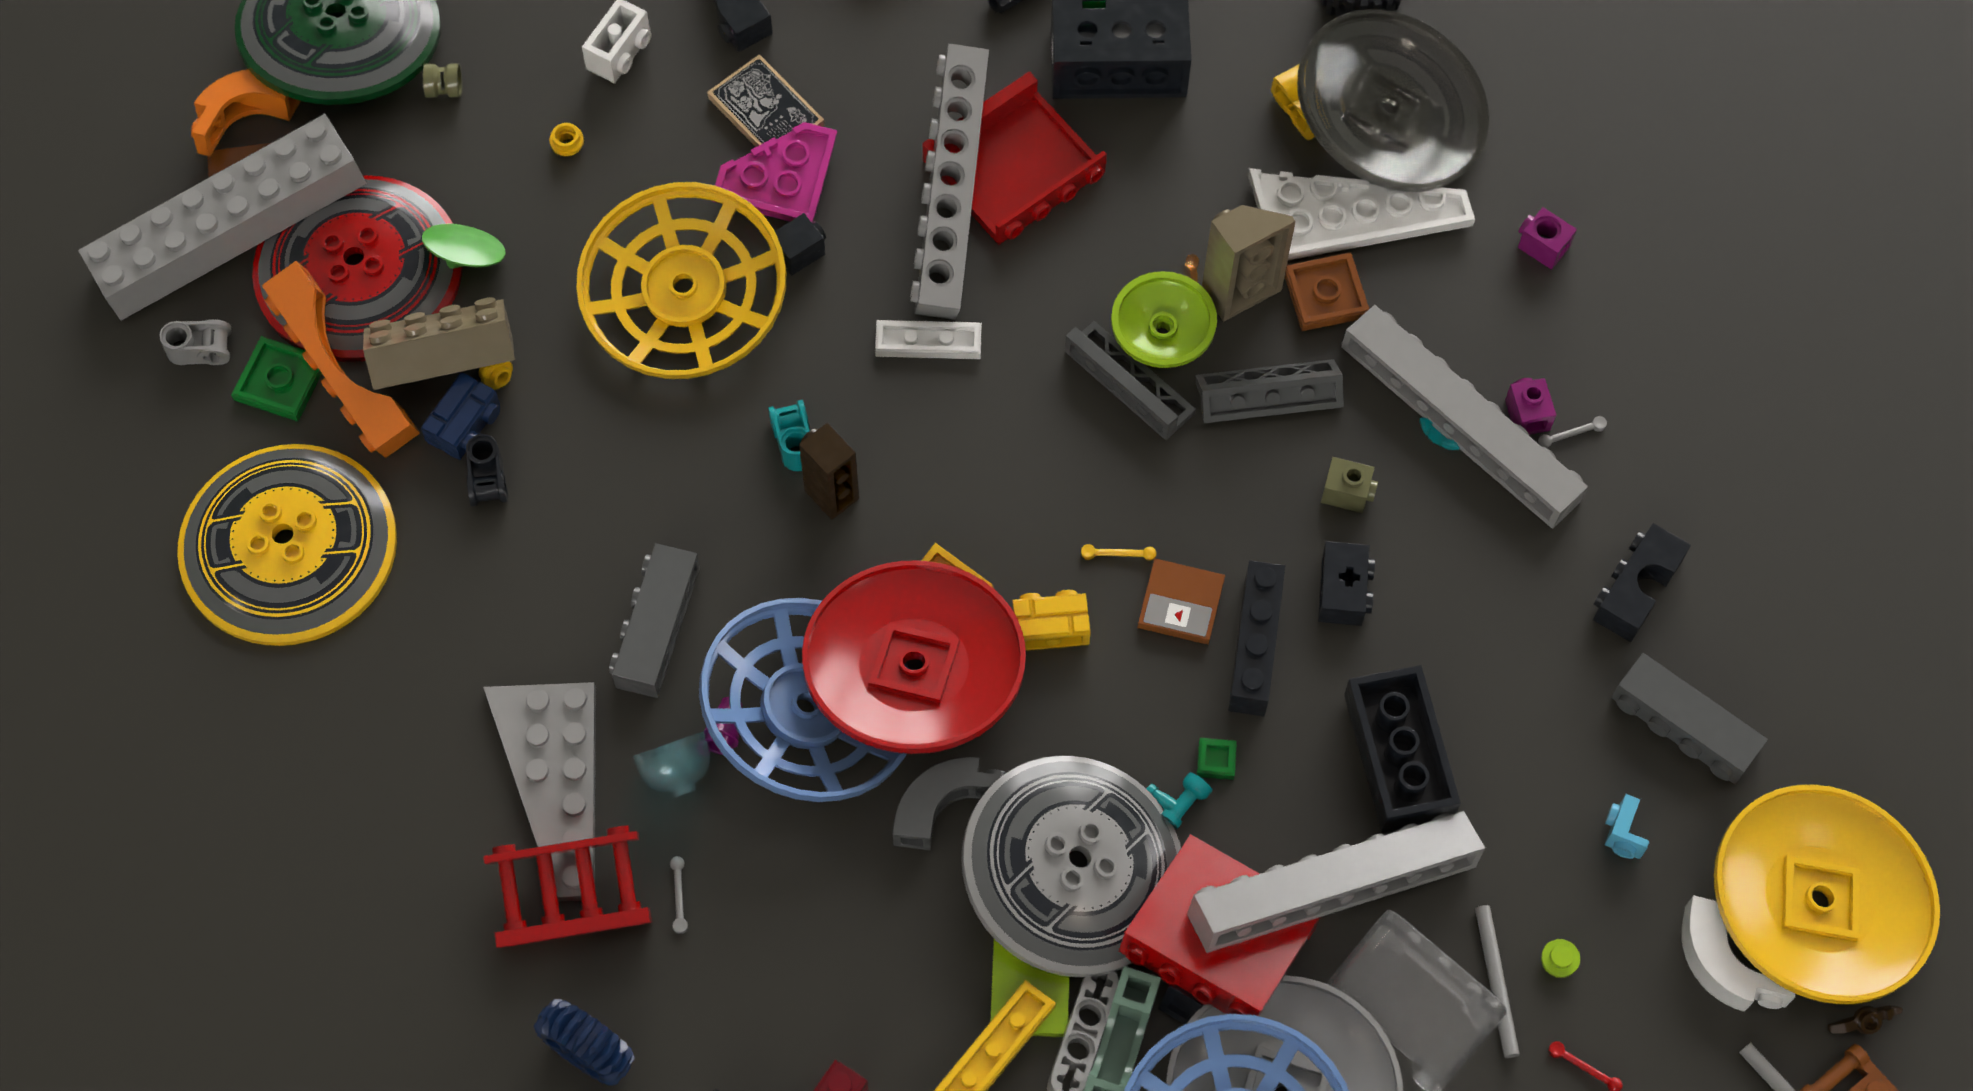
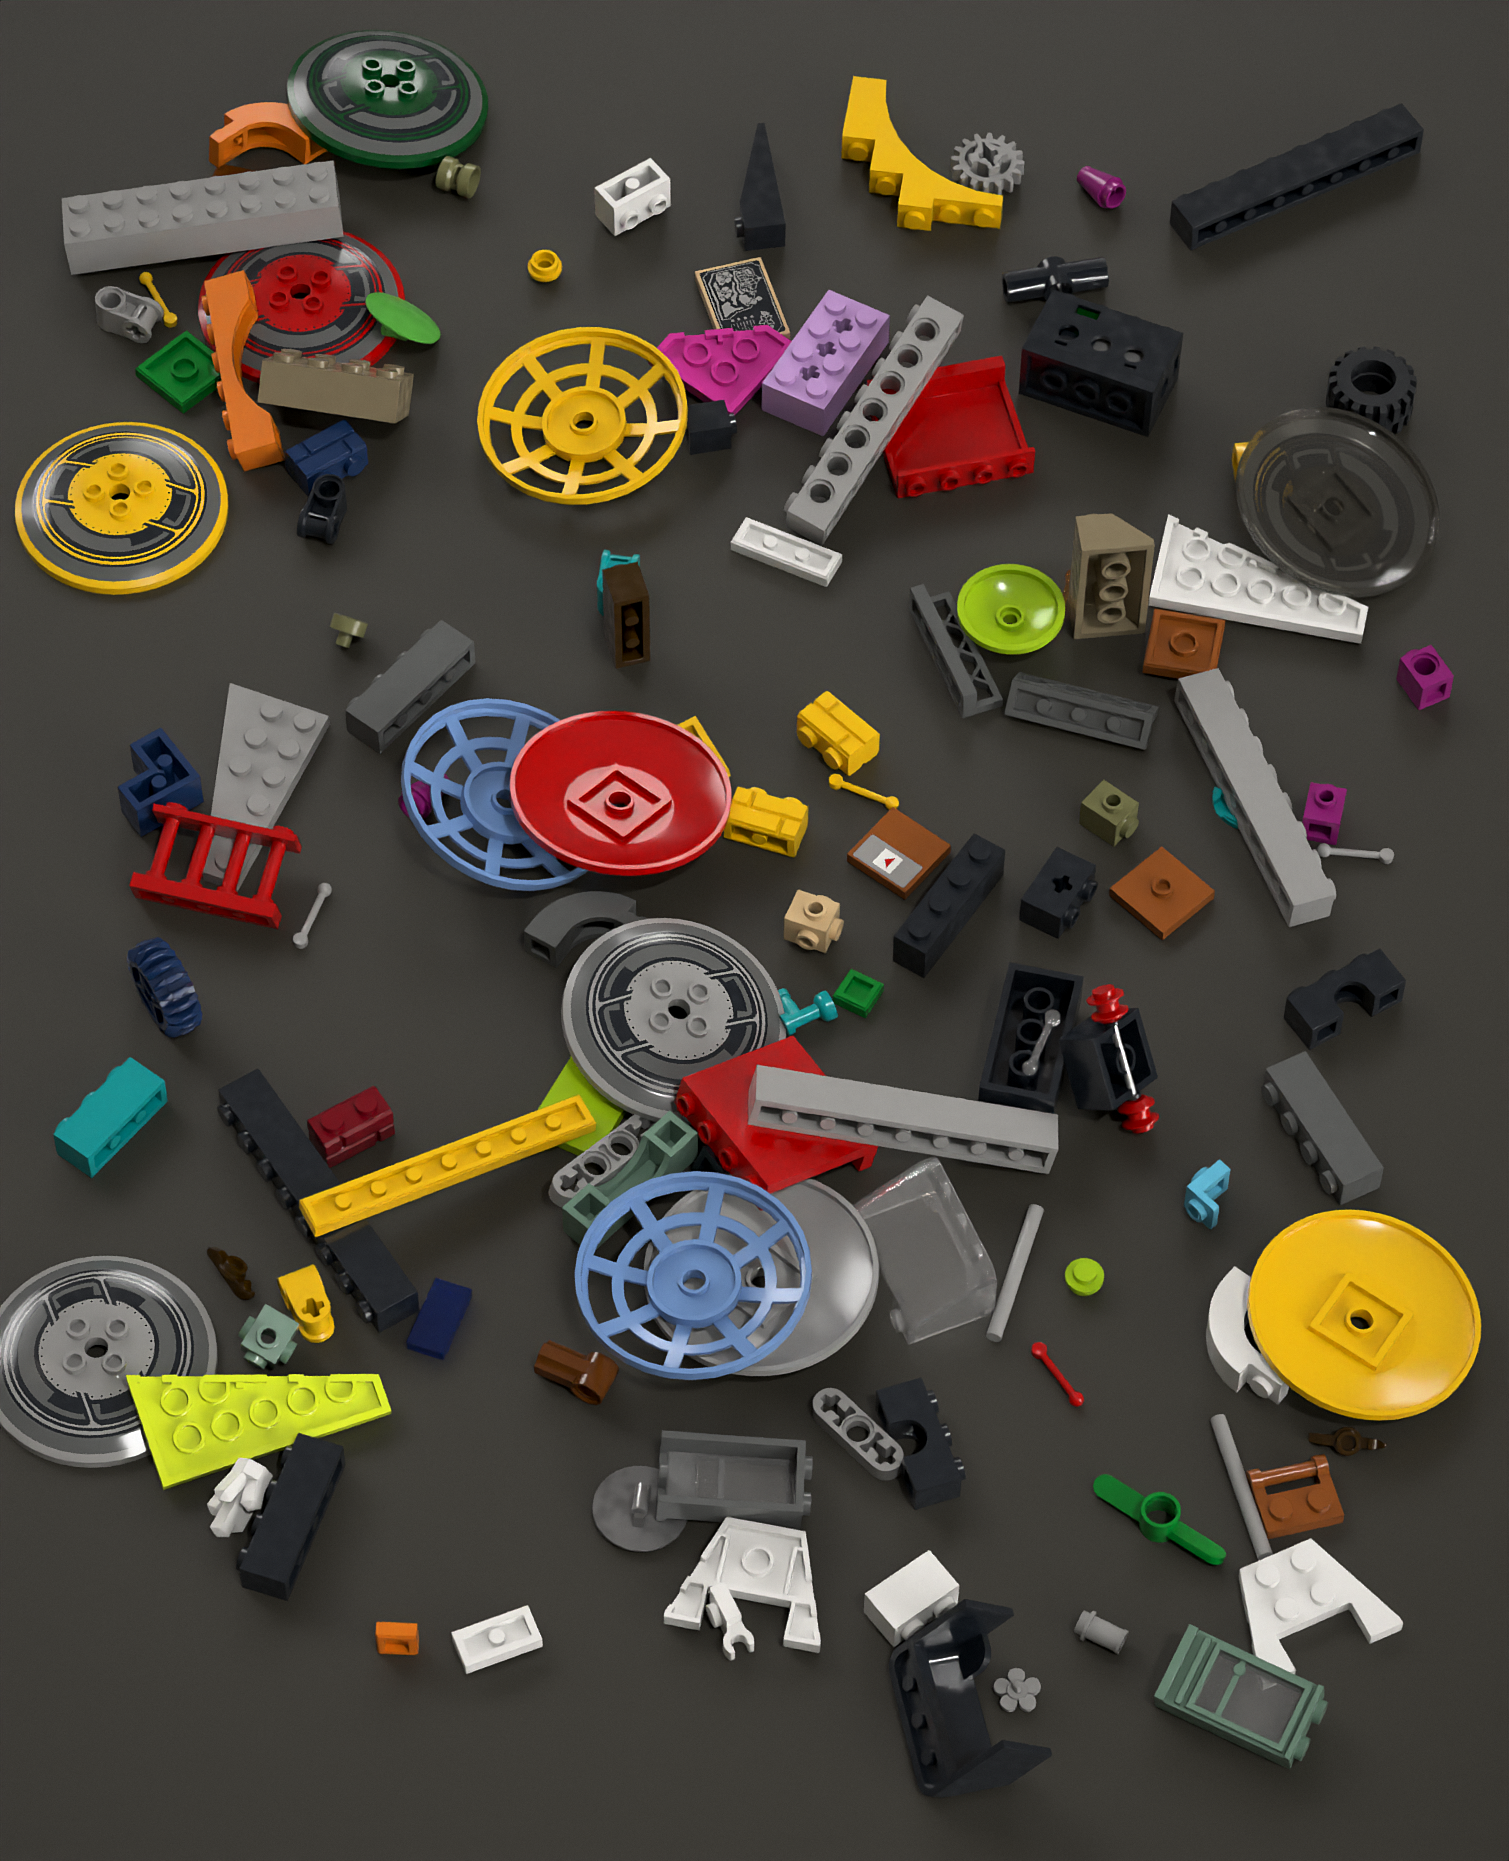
camera: 25 degrees right, 10 degrees down
(238, 329) = (169, 319): none -> yellow hinge
(477, 823) = (161, 778): none -> dark blue brick
(496, 375) = (372, 429): yellow plate -> none
(567, 583) = (347, 628): none -> olive tile
(675, 765) = (363, 804): clear light blue cylinder -> none
(872, 138) = (825, 362): none -> lavender brick
(1069, 506) = (837, 734): none -> yellow brick
(1146, 707) = (812, 921): none -> tan brick
(1417, 720) = (1052, 1019): none -> clear hinge
(1429, 543) = (1162, 893): none -> dark orange plate
(1488, 741) = (1111, 1060): none -> black brick

